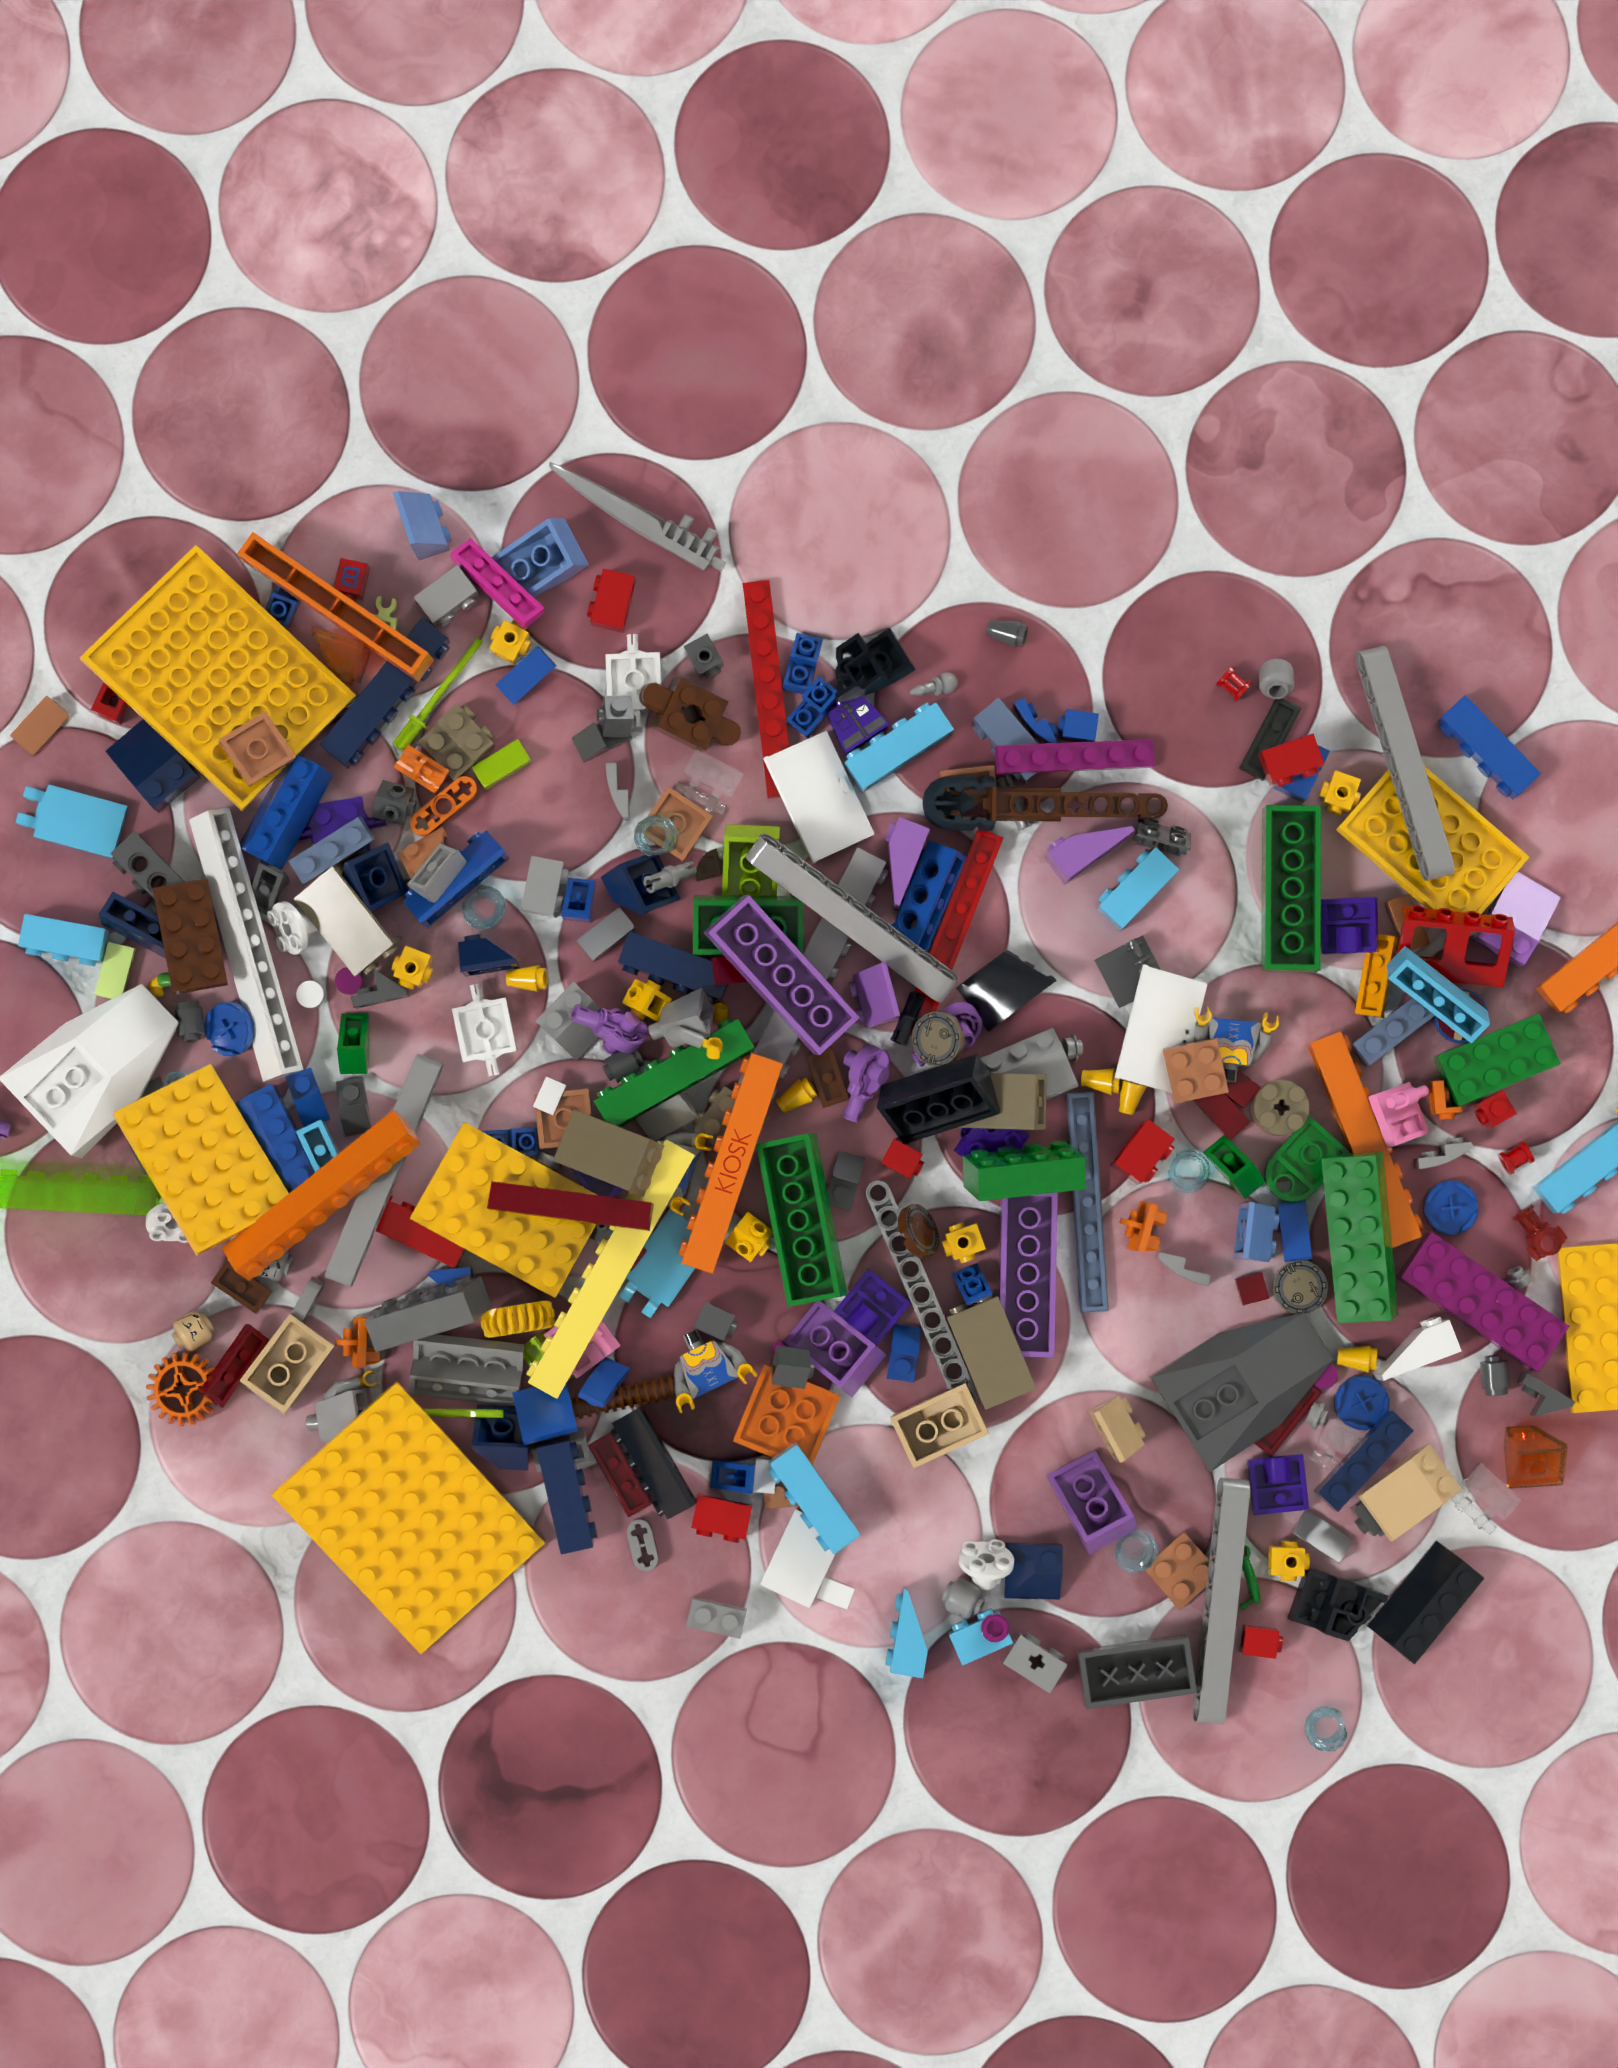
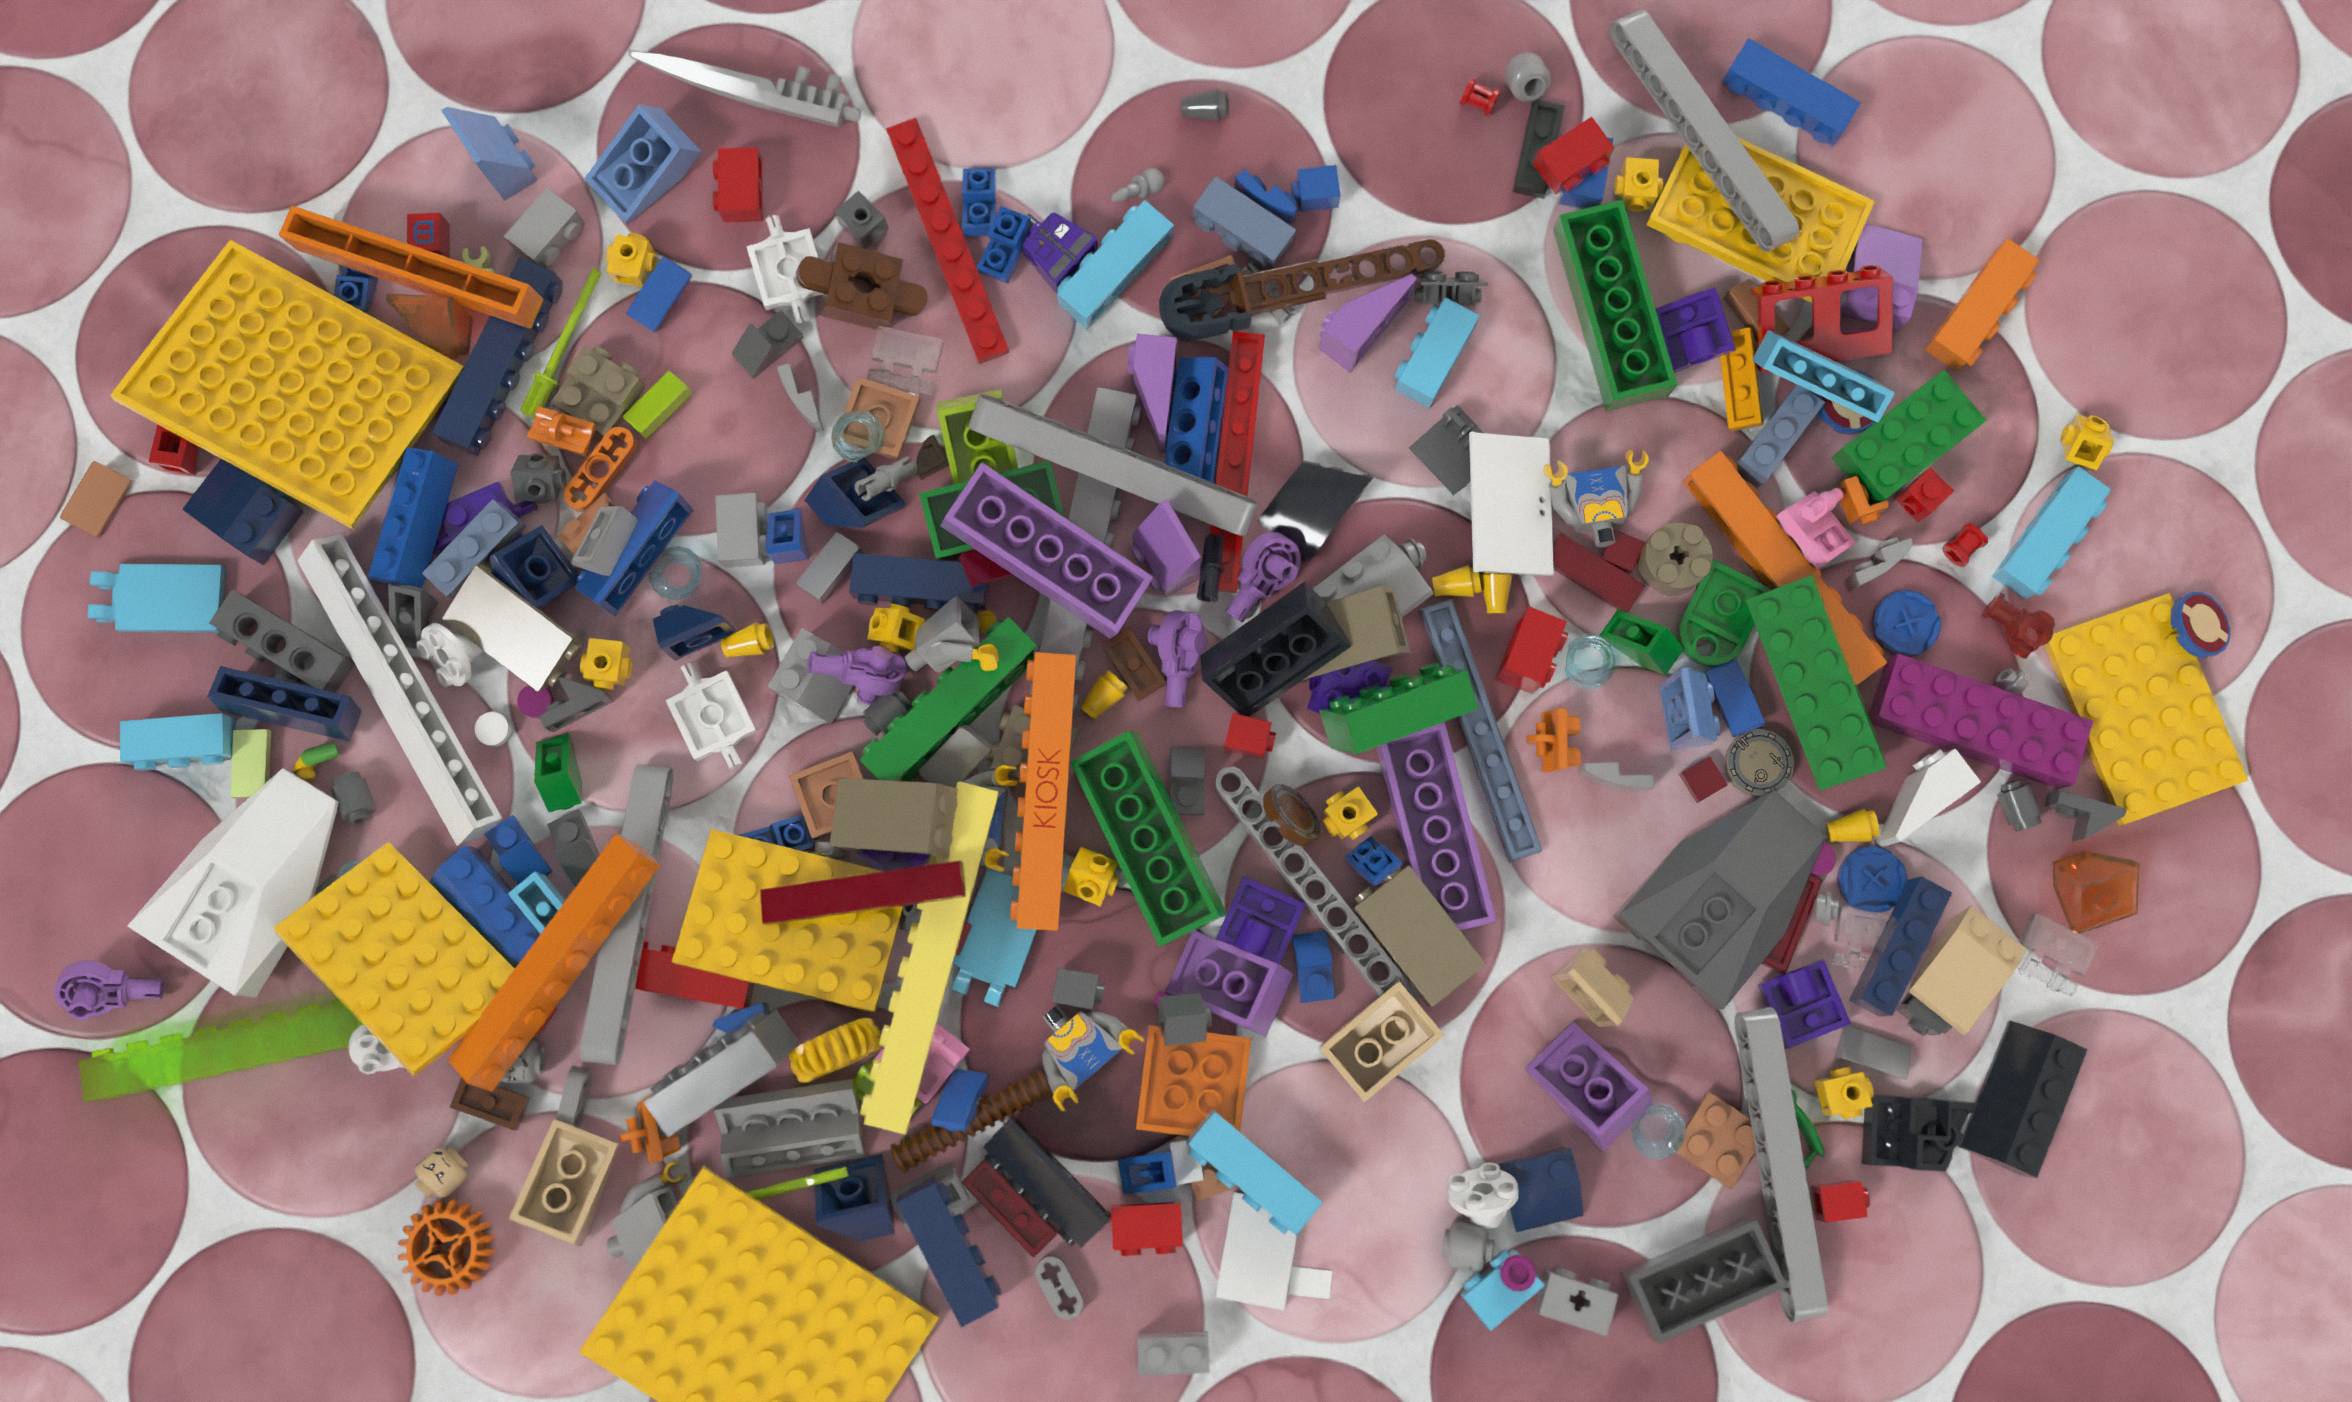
camera: 15 degrees left, 5 degrees down
(190, 936) = (324, 694): reddish brown plate -> none
(229, 1028) = (402, 794): blue tile -> none
(233, 1365) = (492, 1219): dark red tile -> none
(257, 749) = (352, 451): nougat plate -> none
(497, 583) = (600, 198): dark pink plate -> none
(543, 1415) = (896, 1159): blue tile -> none
(549, 1095) = (808, 772): white sticker -> none
(615, 716) = (774, 309): dark grey brick -> none
(813, 792) = (1023, 334): white container -> none
(870, 665) = (1056, 182): black slope -> none
(909, 1647) = (1419, 1327): medium azure slope -> none
(938, 1038) = (1252, 580): tile -> none
(1074, 756) = (1321, 220): magenta plate -> none
(1195, 1070) = (1566, 539): nougat plate -> none
(1328, 1744) = (1967, 1295): clear light blue piece -> none

